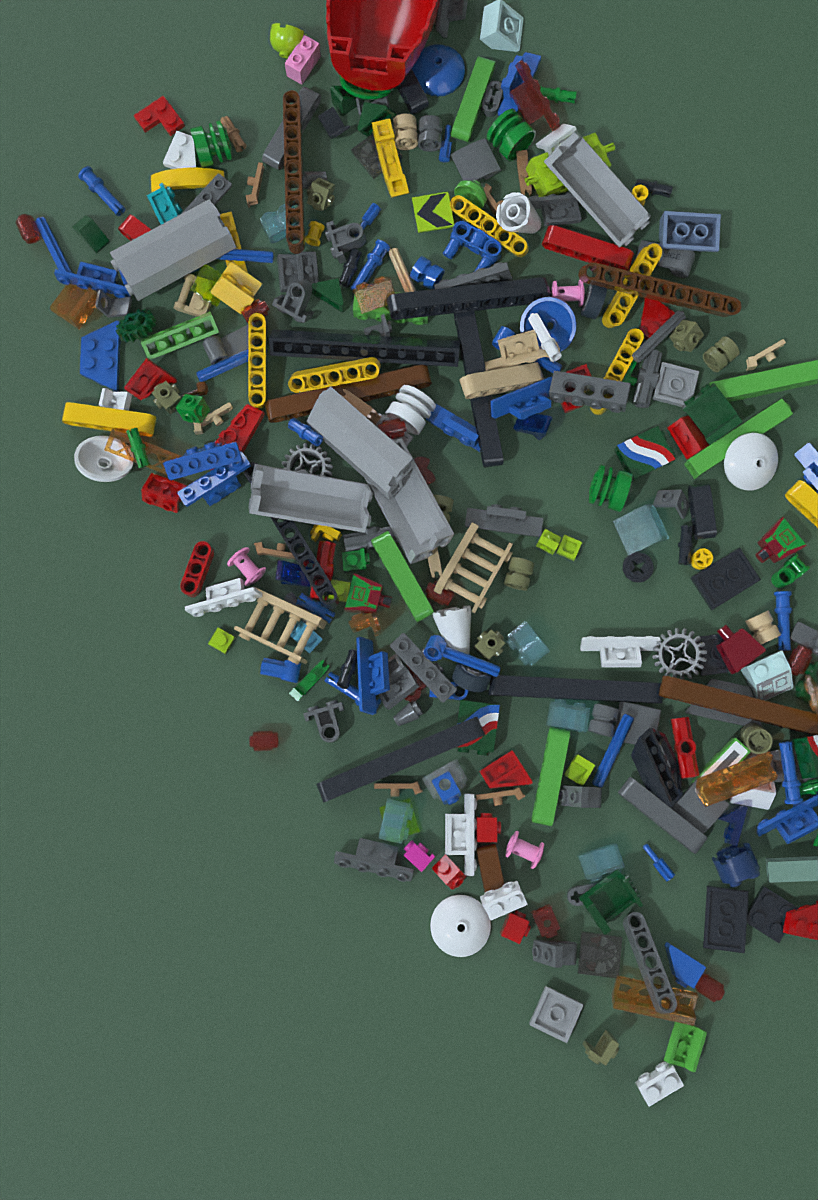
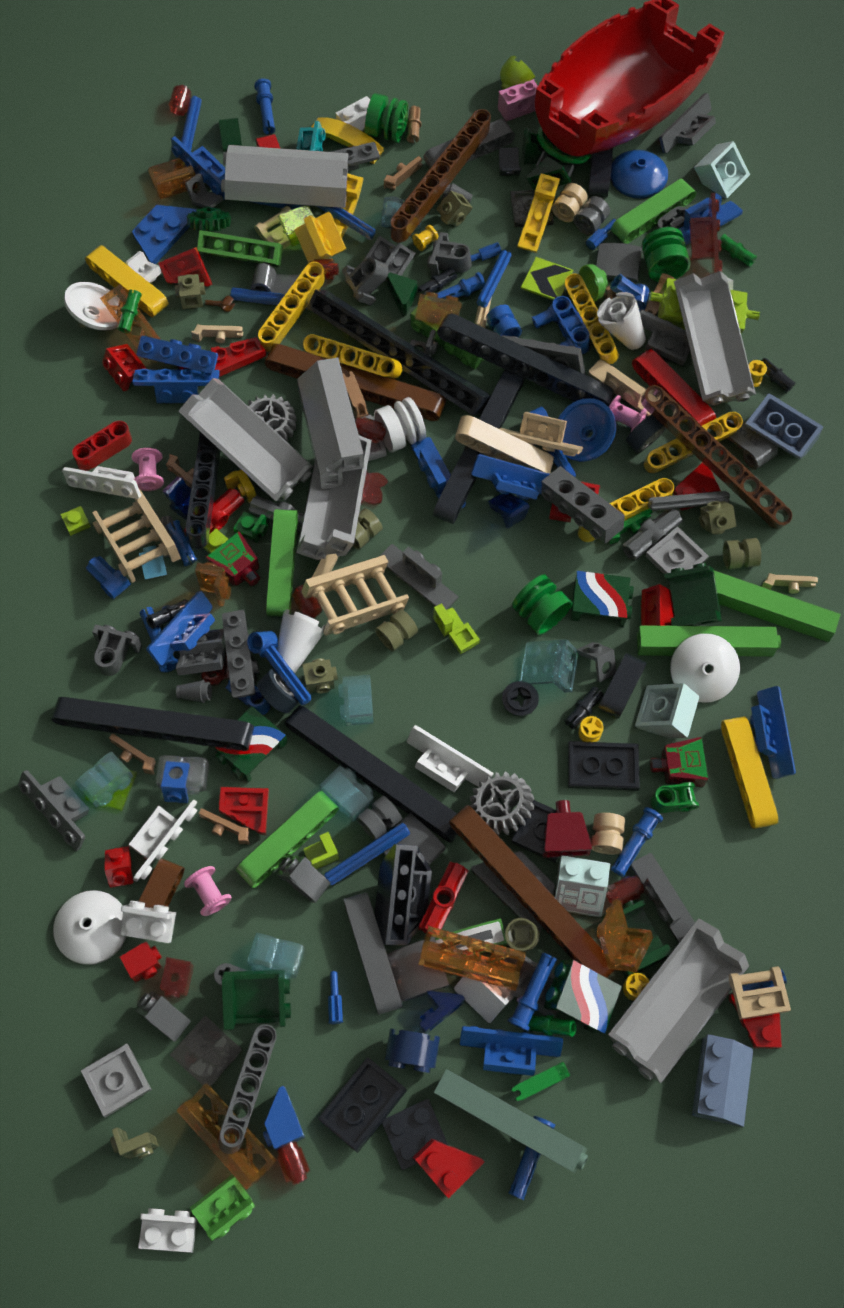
camera: 30 degrees right, 15 degrees down
(159, 112) = (360, 75): red plate -> none
(193, 408) = (204, 312): green brick -> none
(264, 740) = (42, 629): clear red brick -> none
(305, 432) = (290, 389): blue pin -> none
(309, 681) = (126, 605): green piece -> none
(393, 238) = (494, 278): none -> blue axle
(418, 855) = (101, 828): dark pink brick -> none
(487, 828) = (187, 847): red brick -> none
(504, 184) = (639, 291): none -> blue piece
(547, 342) = (570, 437): white axle -> none
(548, 269) = (620, 383): none -> tan bracket
(744, 510) = (667, 710): none -> light aqua slope

